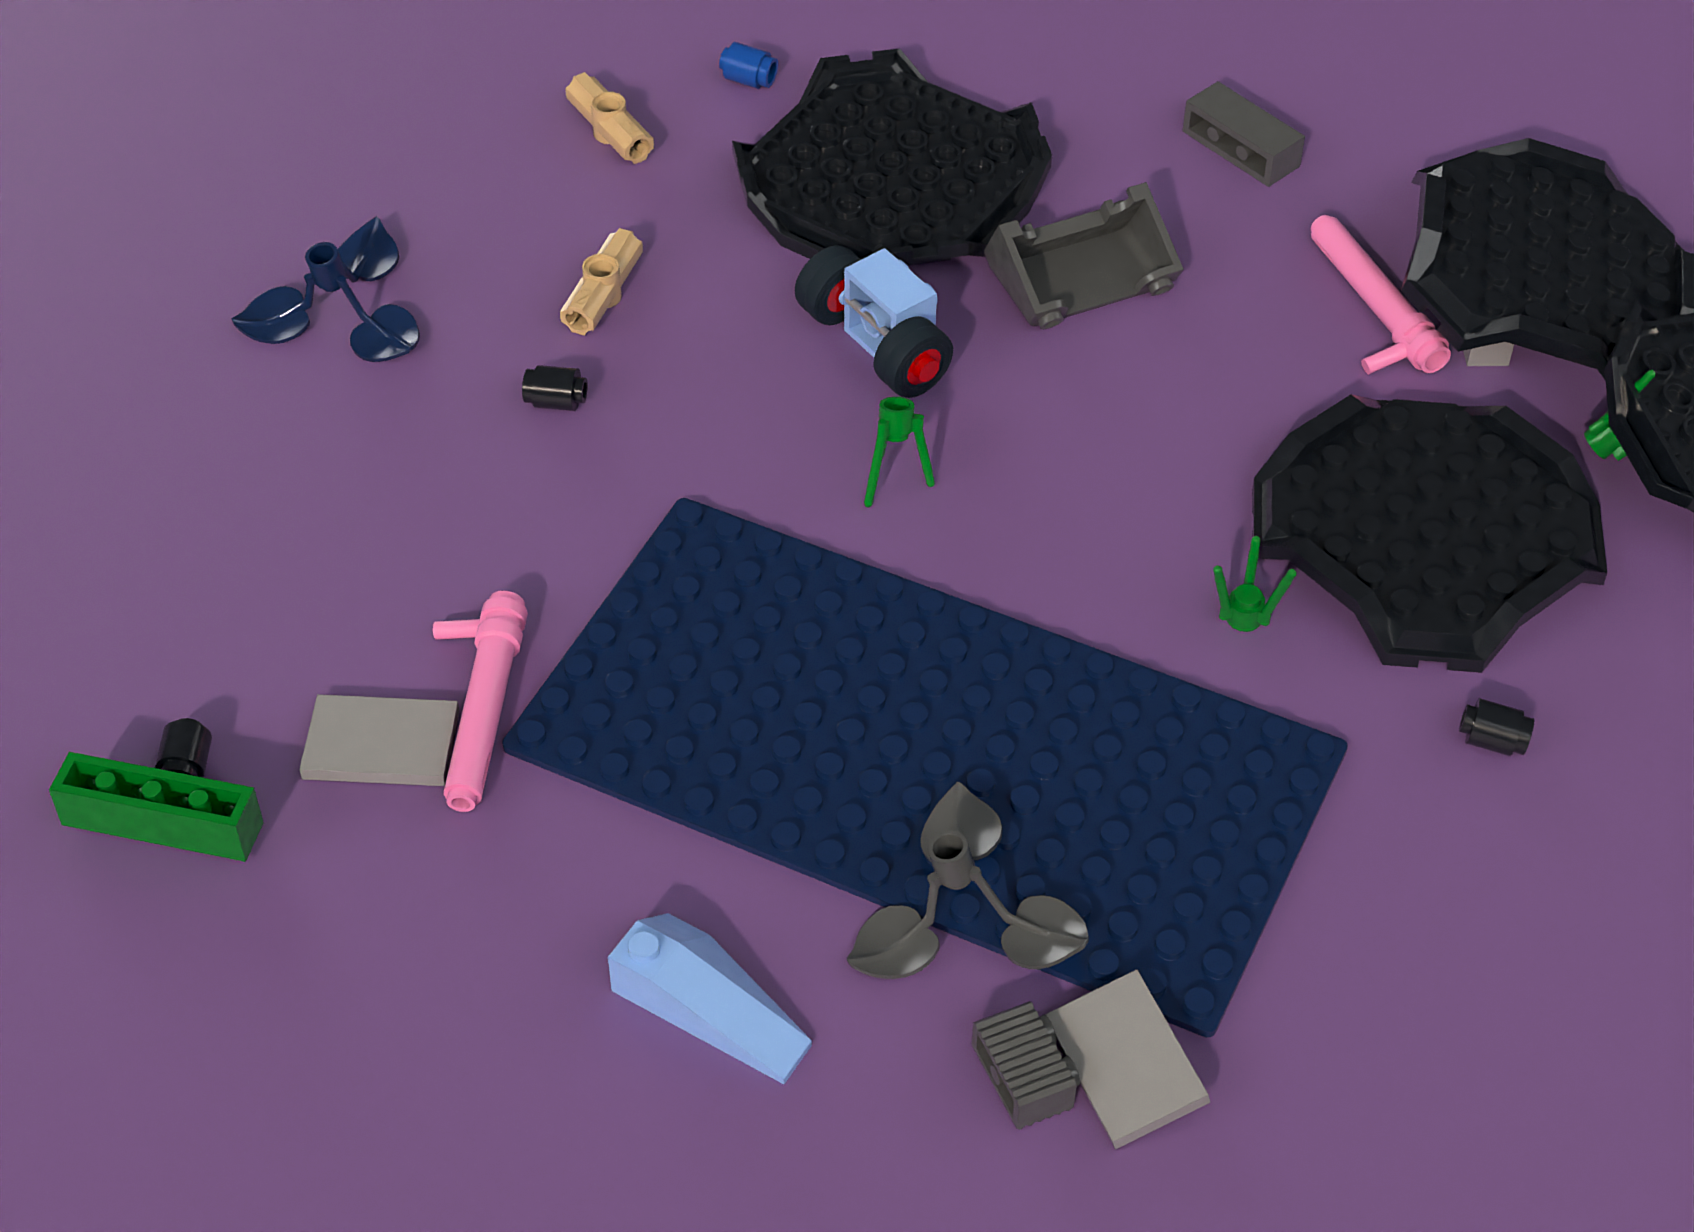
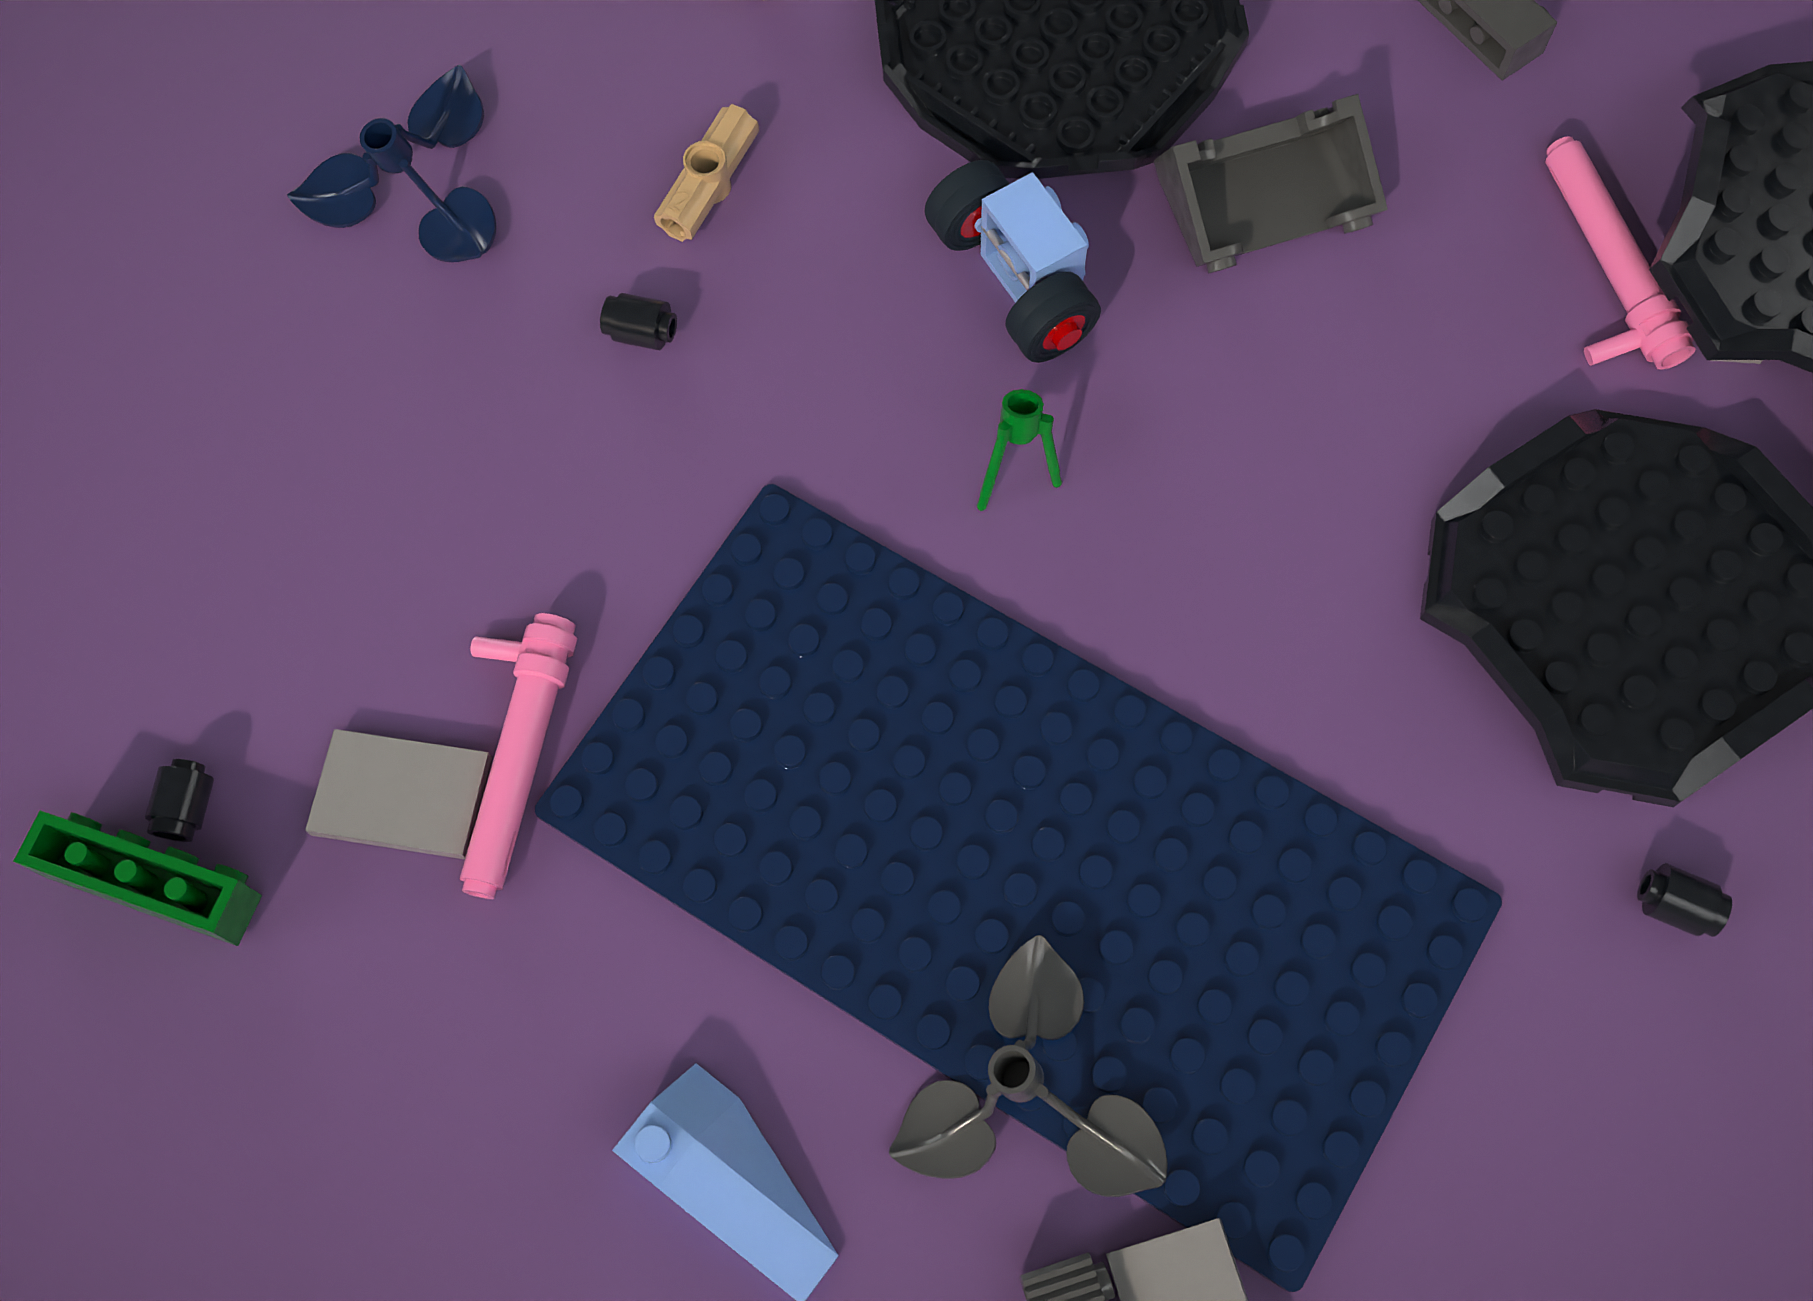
camera: 10 degrees right, 20 degrees up
(1246, 604) = (1408, 695): green plant -> none

